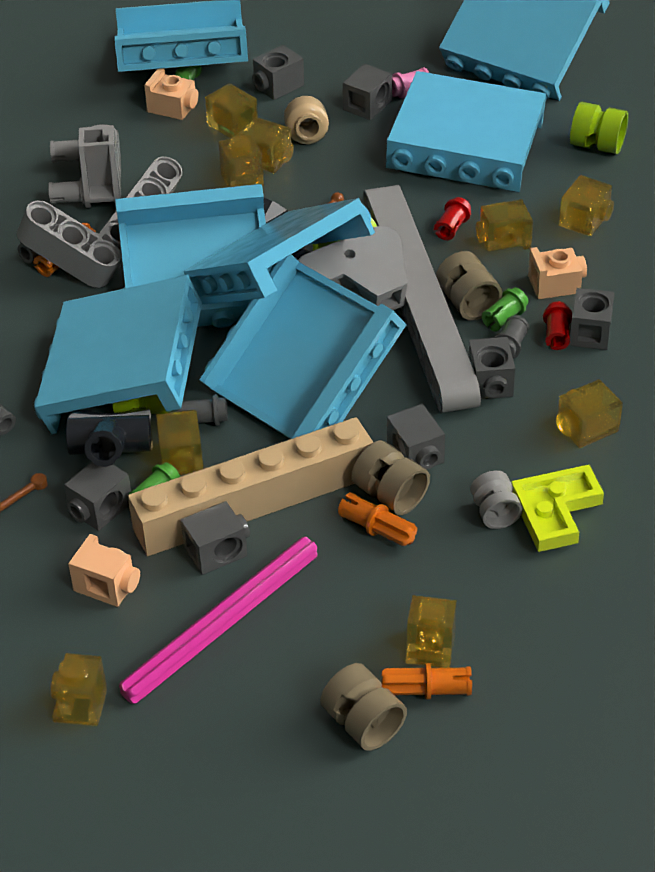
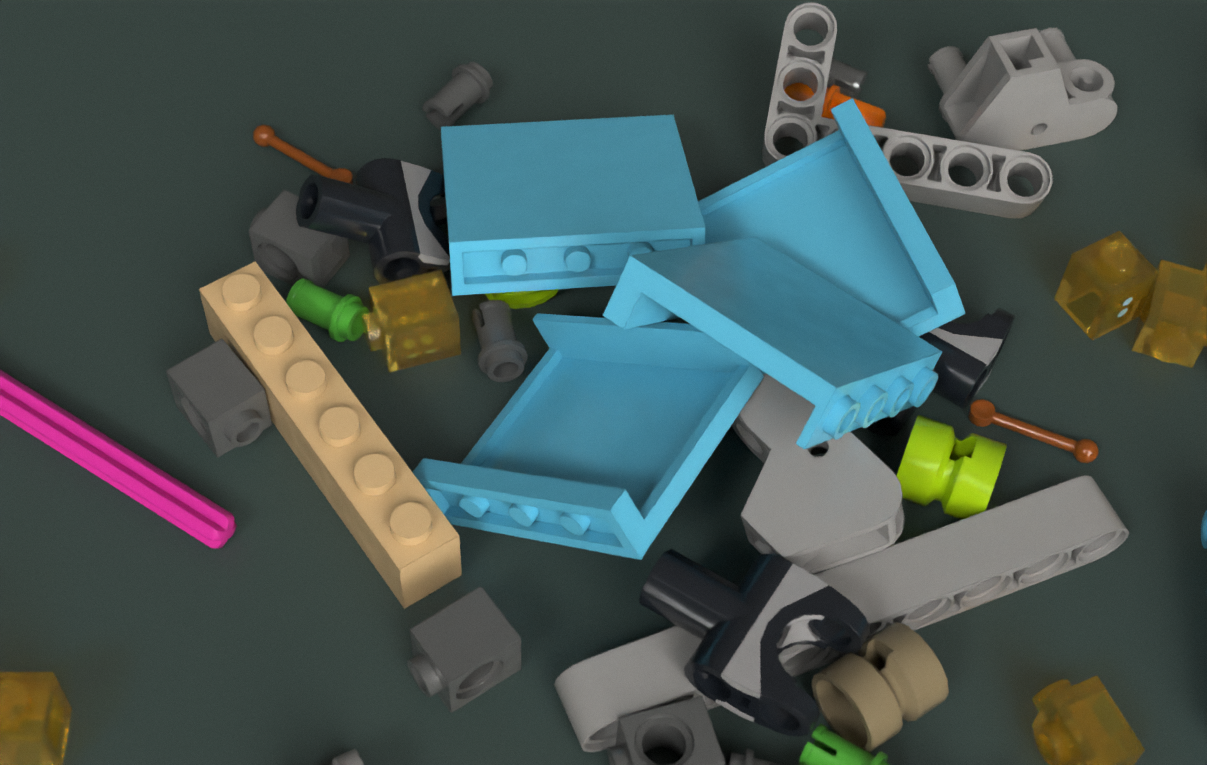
camera: 75 degrees right, 10 degrees up
(103, 572) = (147, 275): light nougat brick -> none
(377, 519) = (278, 618): orange axle -> none
(390, 477) = (352, 628): dark tan wheel -> none
(439, 307) = (747, 630): none -> black connector
(456, 212) = (1087, 644): red pin -> none

